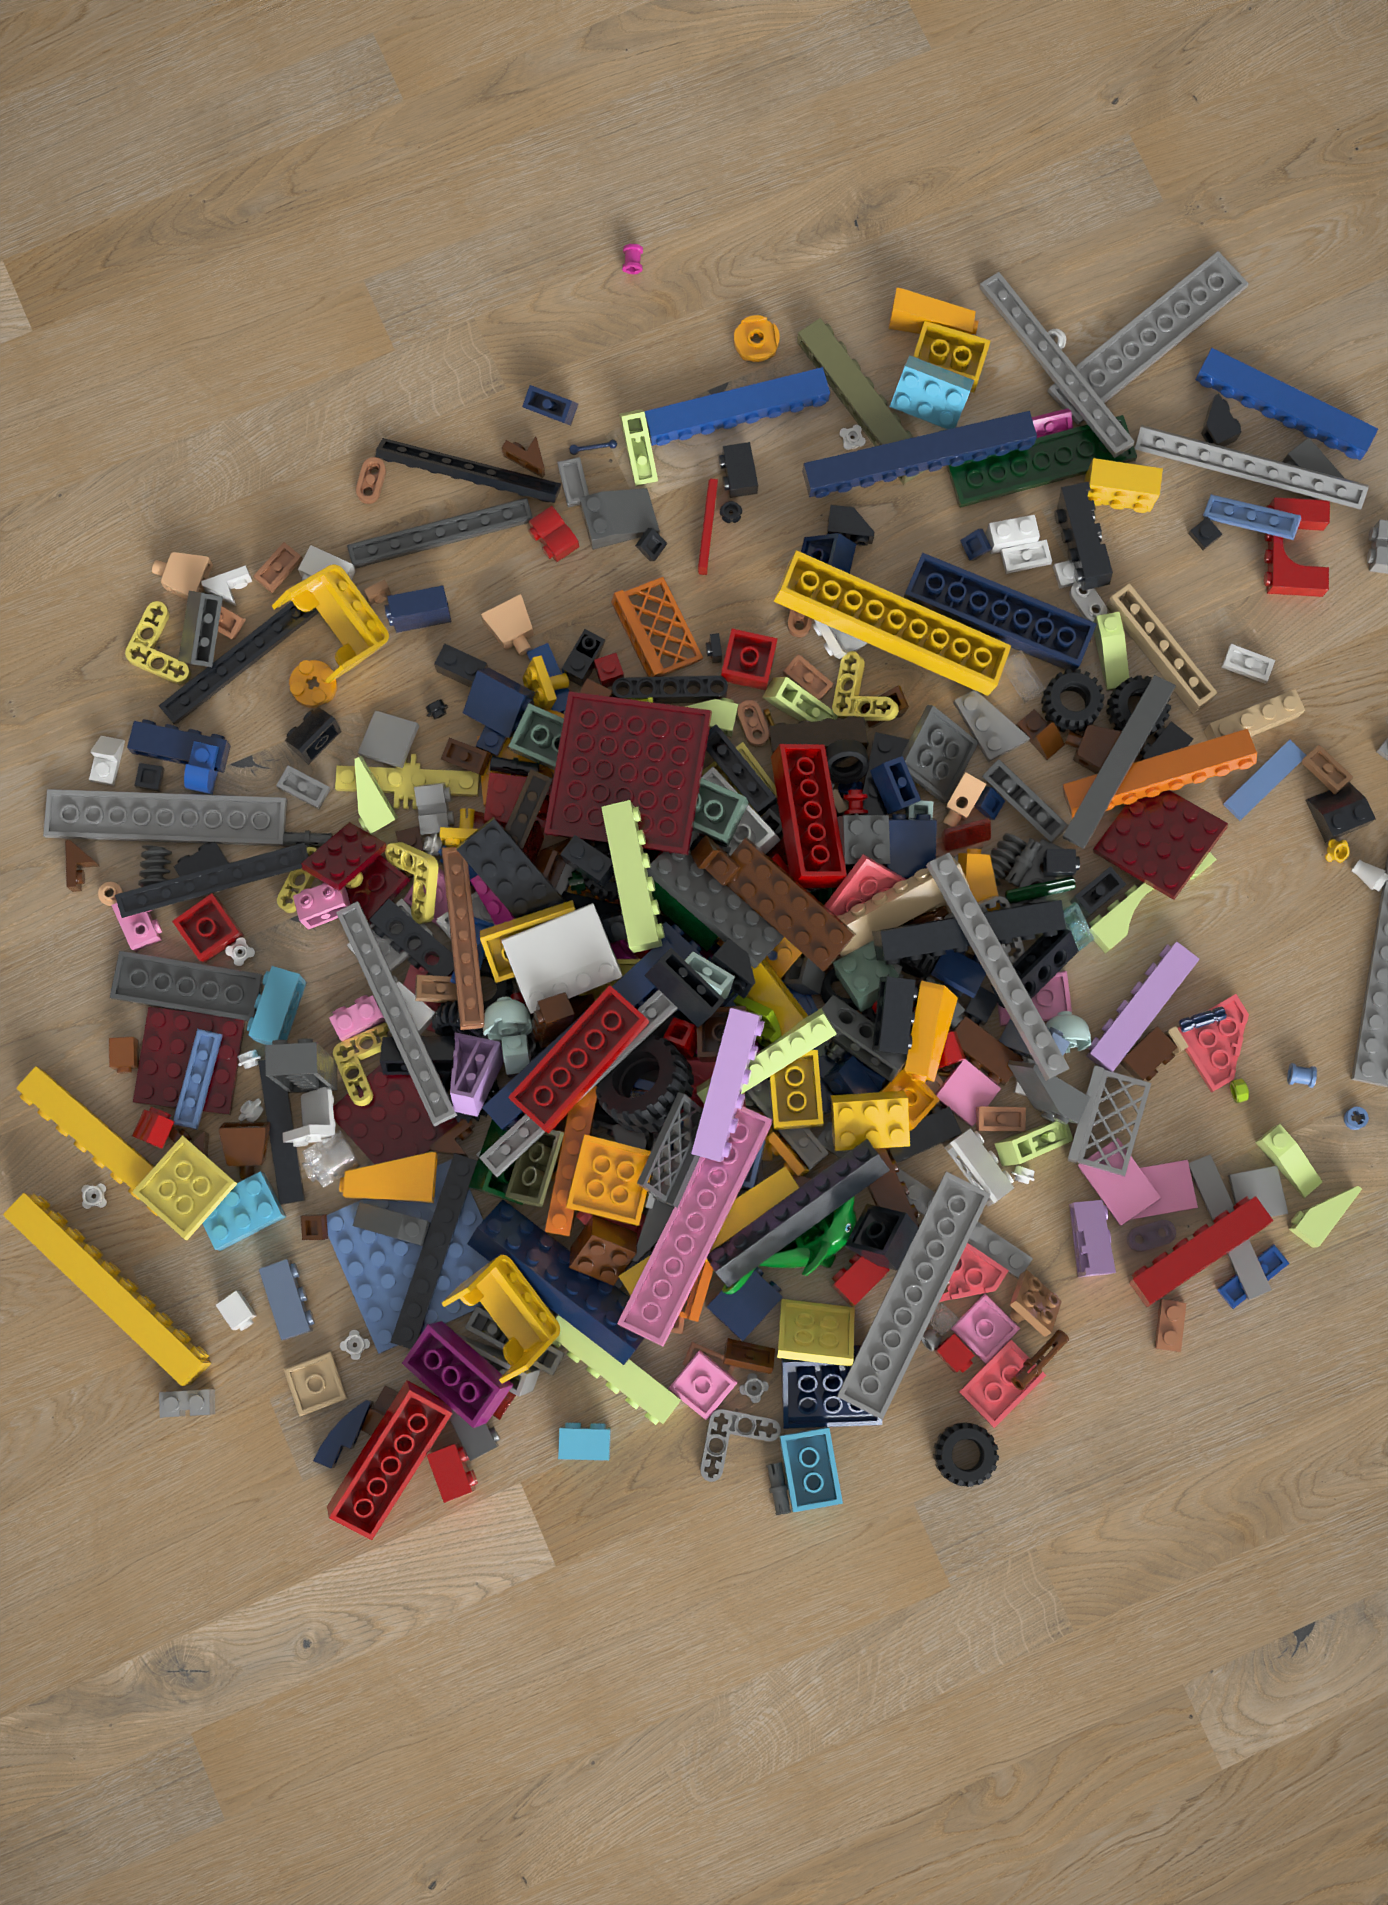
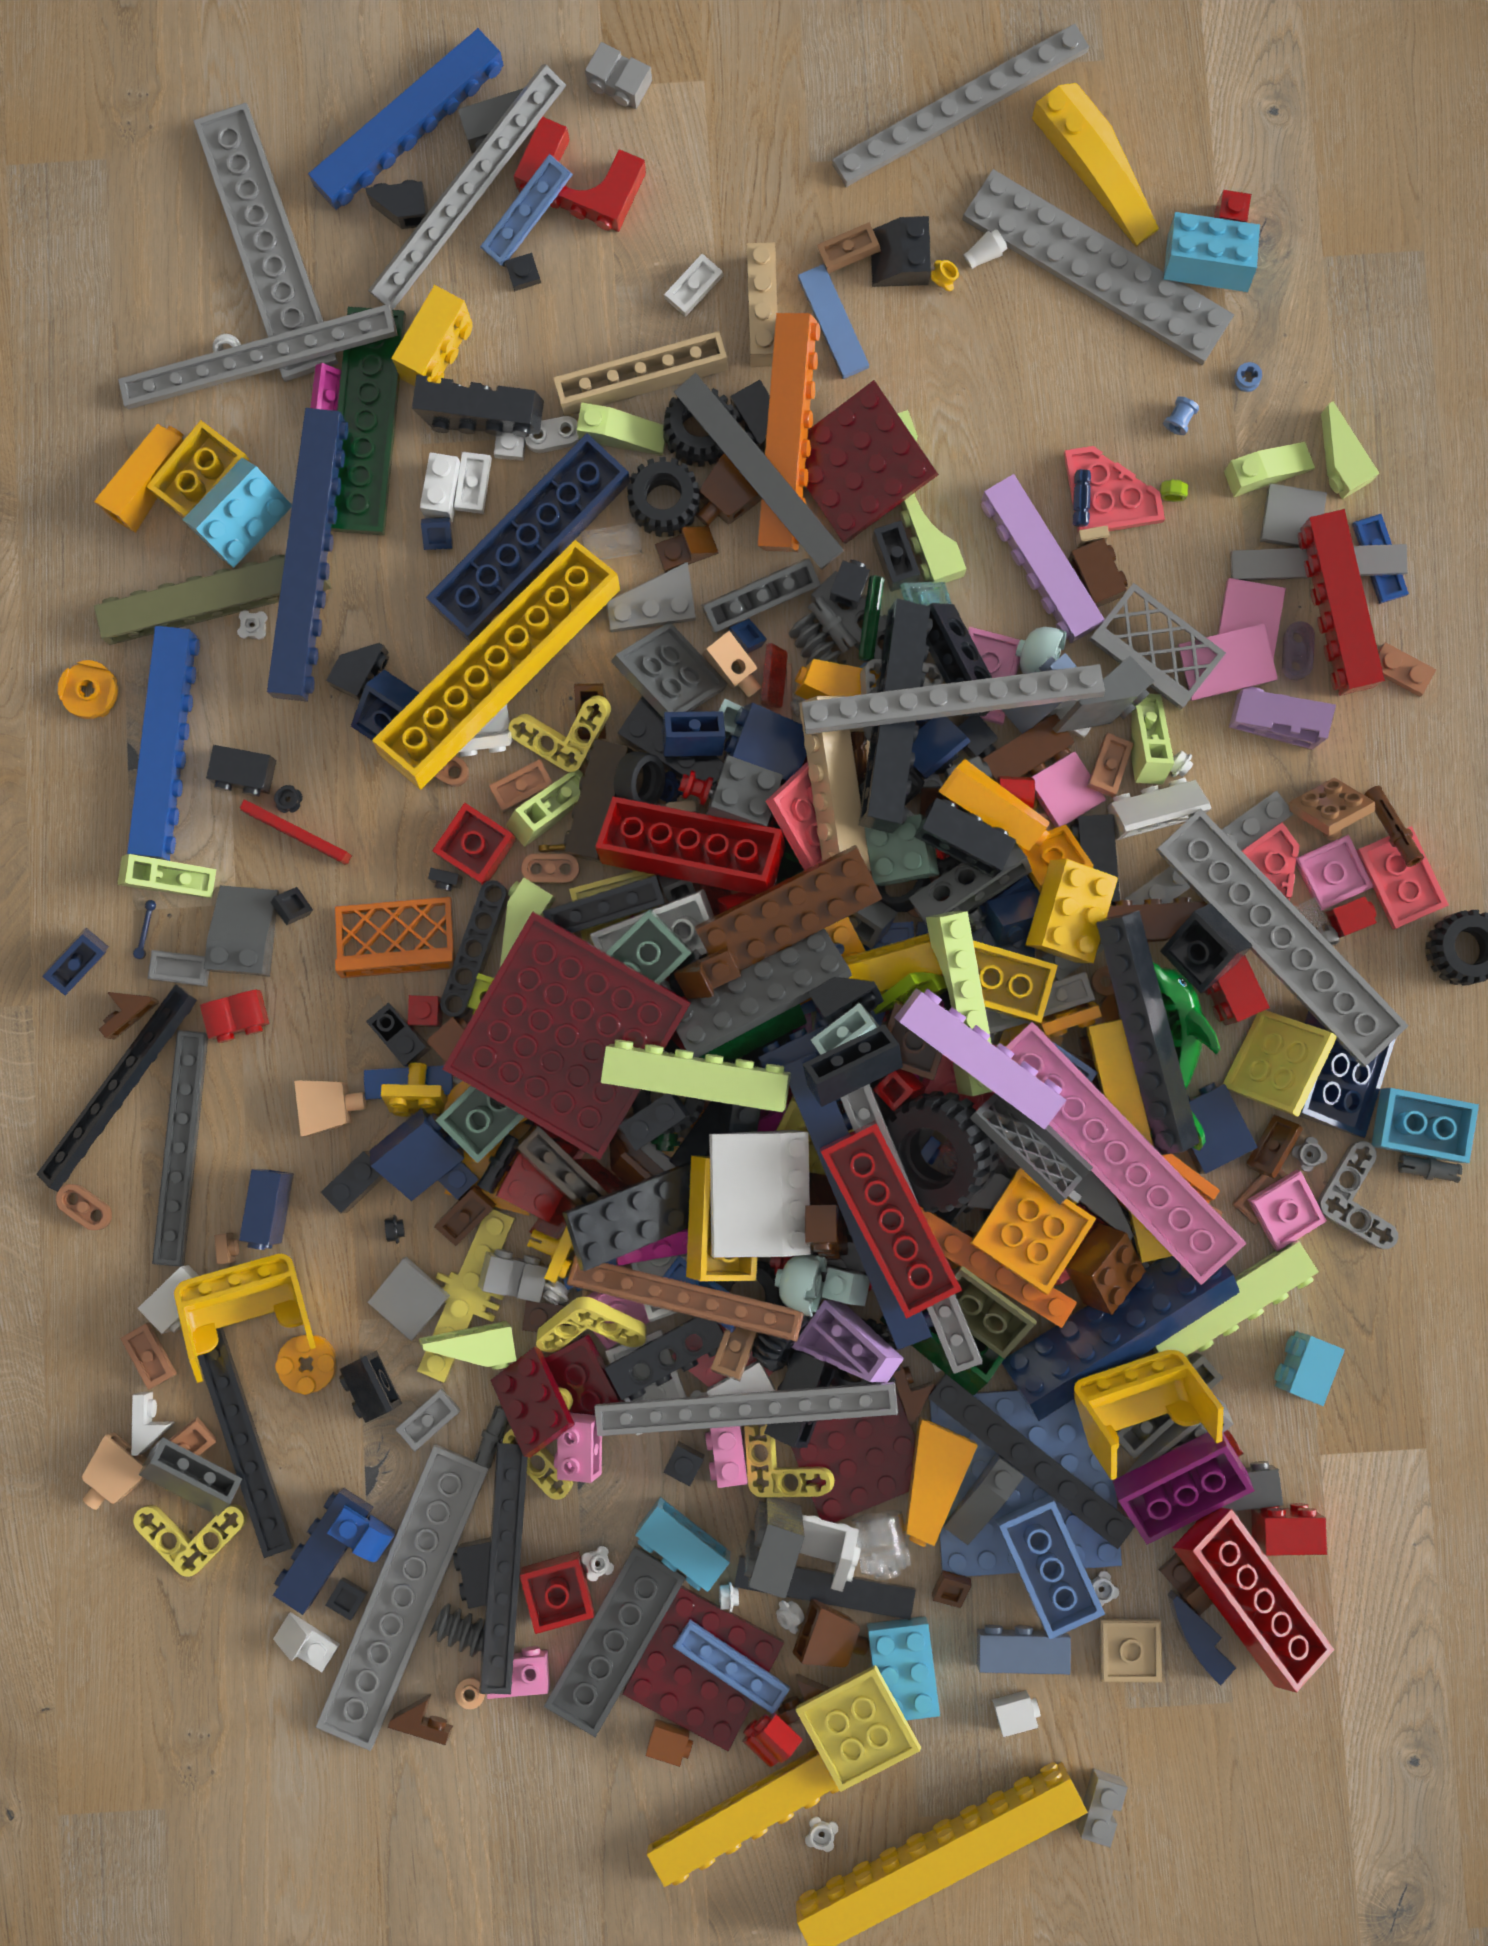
camera: 60 degrees left, 5 degrees up
(338, 988) = (684, 1463): none -> black brick
(357, 1291) = (1050, 1567): none -> medium blue brick

